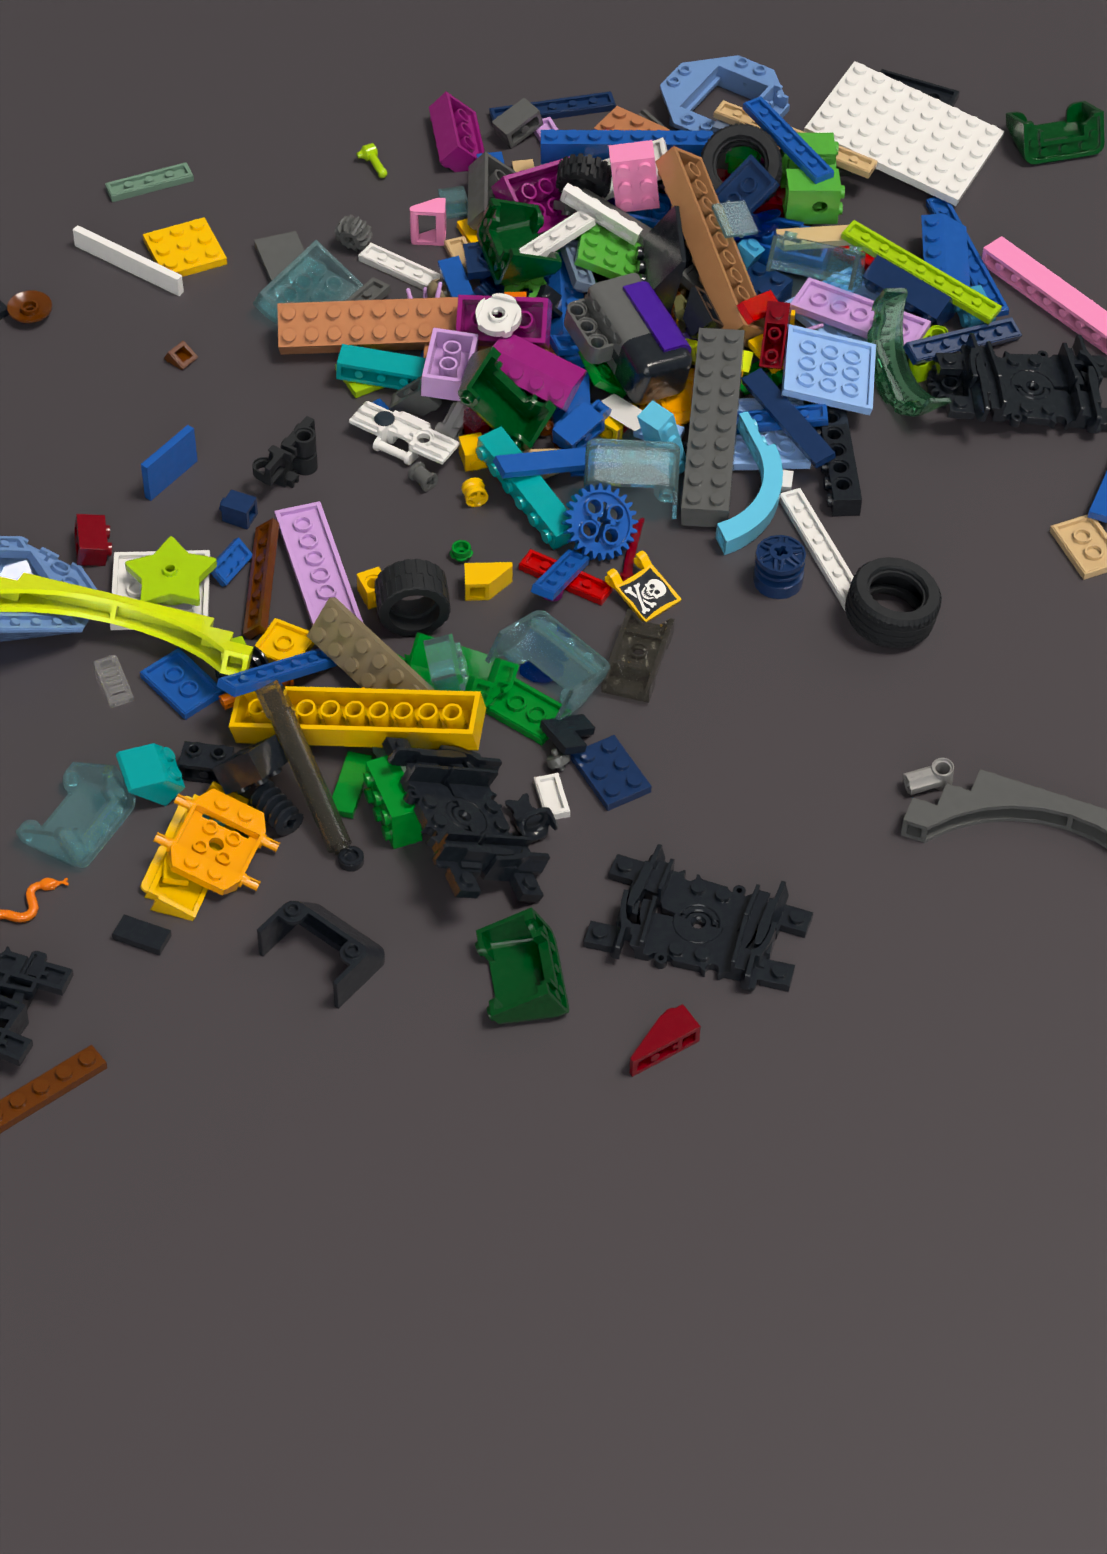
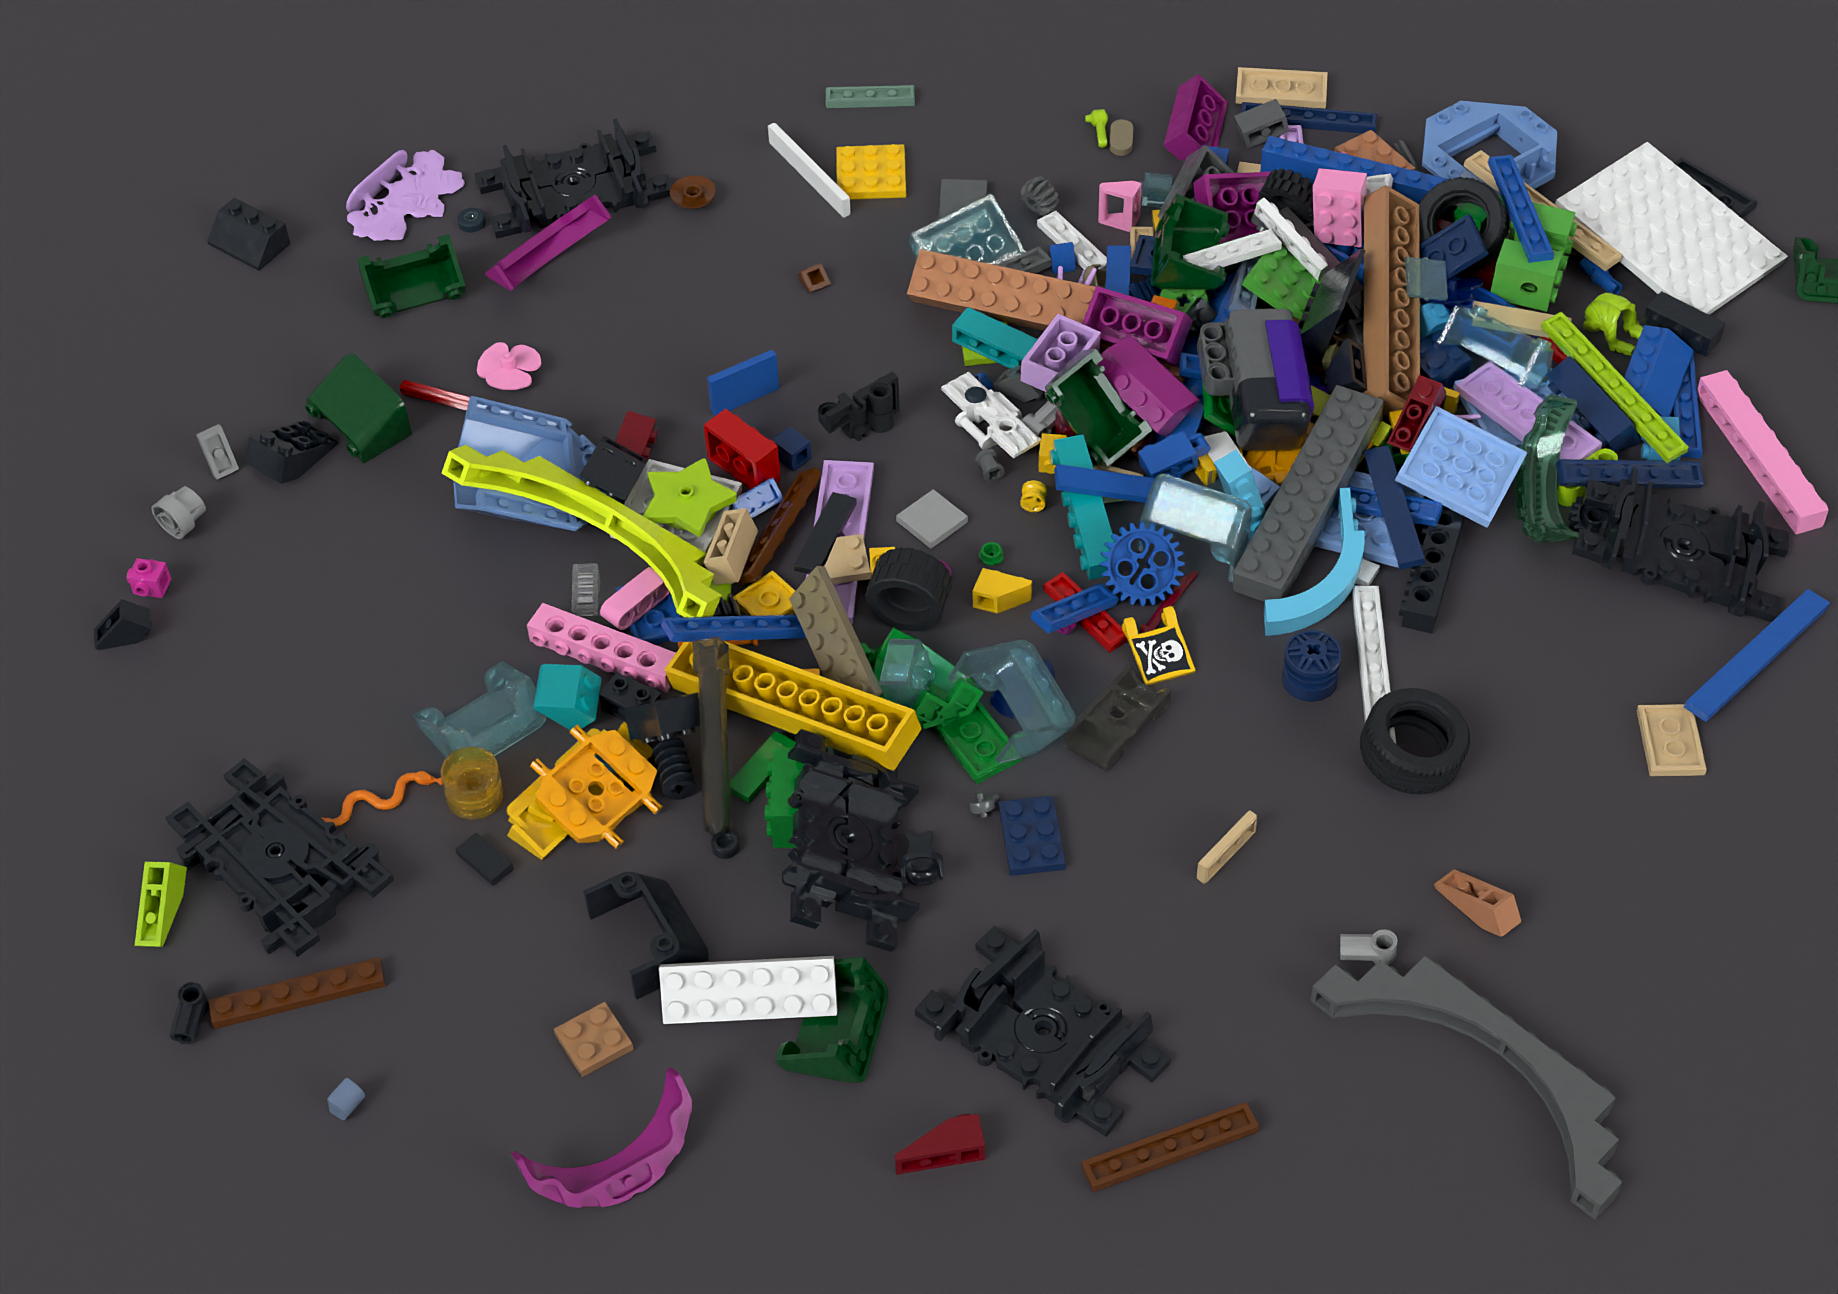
camera: 25 degrees right, 0 degrees up
(92, 566) = (613, 468): none -> black slope
(102, 872) = (472, 782): none -> clear yellow wheel
(126, 1170) = (345, 1099): none -> sand blue brick
(154, 724) = (600, 646): none -> bright pink brick
(167, 675) = (634, 599): none -> bright pink beam
(198, 521) = (741, 450): none -> red brick
(231, 604) = (731, 546): none -> tan brick
(310, 573) = (824, 534): none -> black tile
(319, 1052) = (593, 1039): none -> medium nougat plate
(344, 586) = (848, 560): none -> tan wing
(393, 535) = (932, 518): none -> light grey tile
(396, 164) = (1121, 137): none -> dark tan tile
(398, 281) = (1063, 256): none -> blue slope
(411, 1138) = (627, 1171): none -> magenta windscreen
(438, 967) = (748, 989): none -> white plate
(498, 326) = (1125, 330): white plate -> none
(511, 87) = (1286, 86): none -> tan plate
(552, 795) = (958, 842): white tile -> none
(568, 732) = (1000, 778): black tile -> none
(755, 307) = (1403, 379): red tile -> none
(778, 733) = (1227, 847): none -> tan tile
(845, 982) = (1169, 1147): none -> reddish brown plate
(861, 185) = (1600, 277): none -> blue pin
(883, 214) = (1603, 315): none -> lime hair
(957, 205) = (1690, 324): none -> black brick
(1002, 715) = (1483, 903): none -> nougat slope

